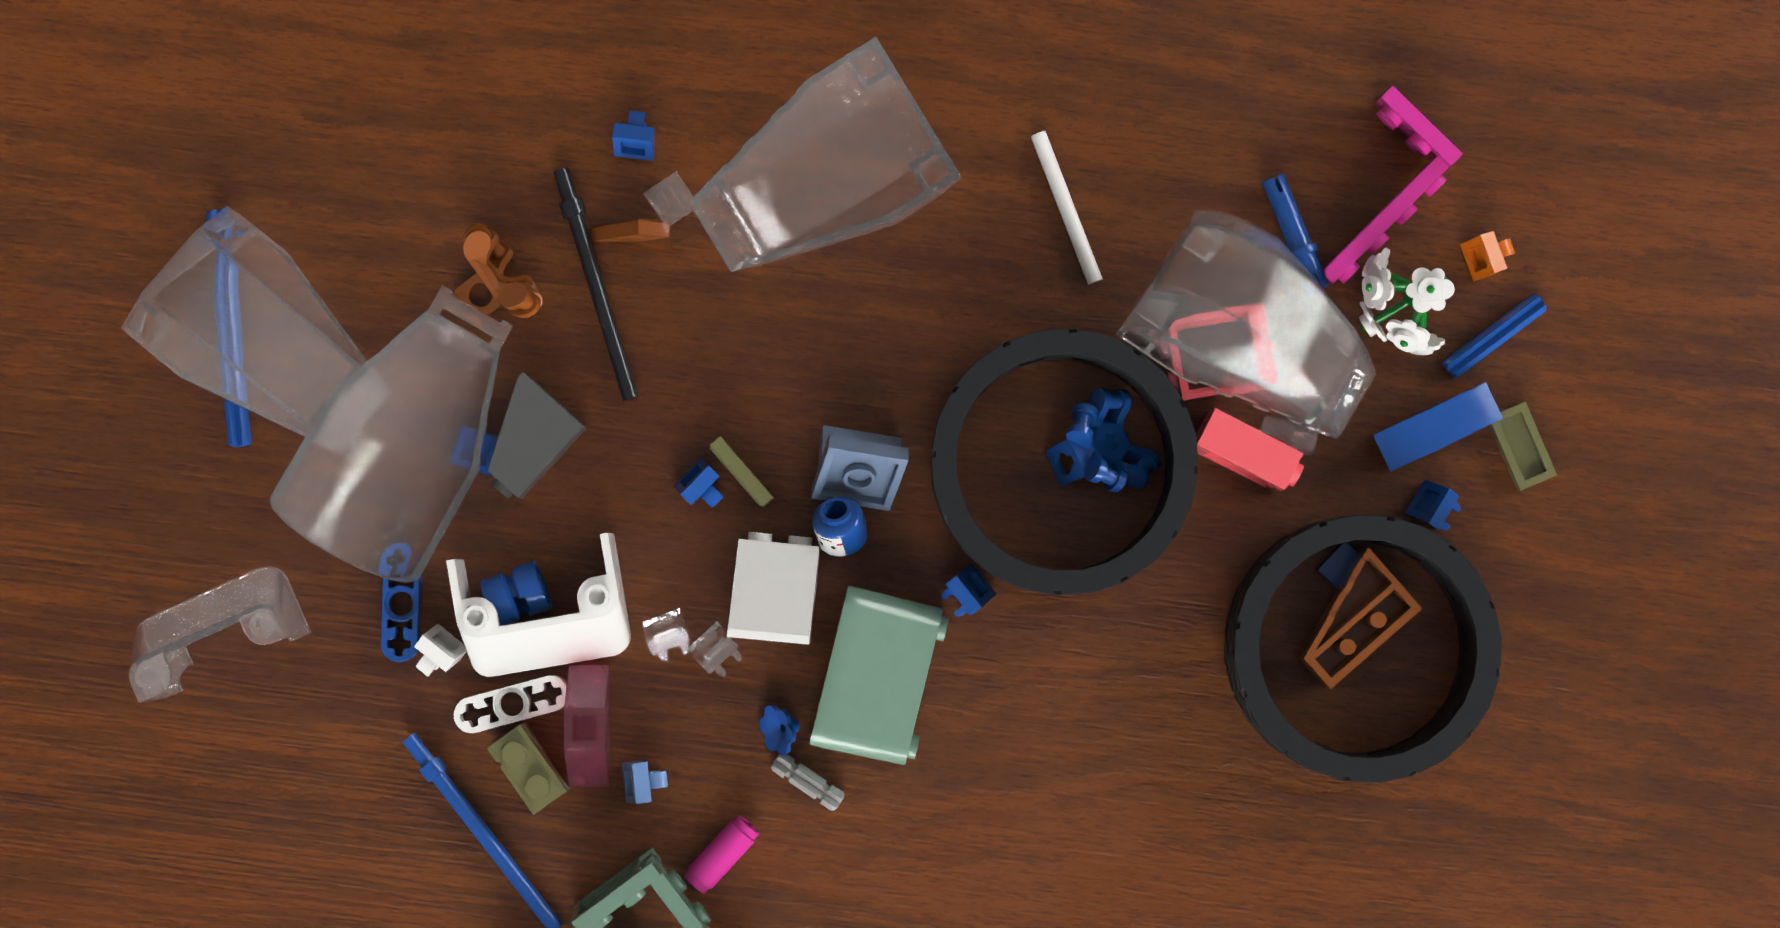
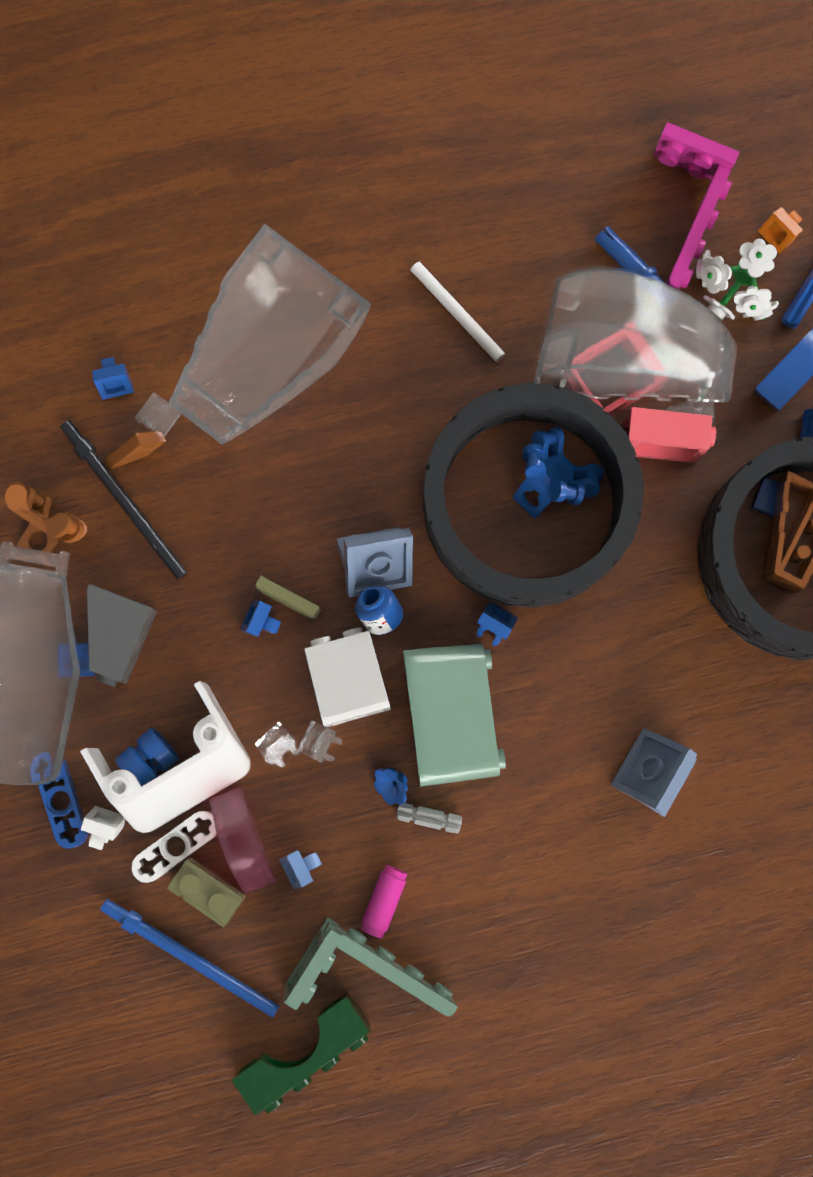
camera: 20 degrees left, 5 degrees down
(1080, 828) = (655, 771): none -> sand blue bracket

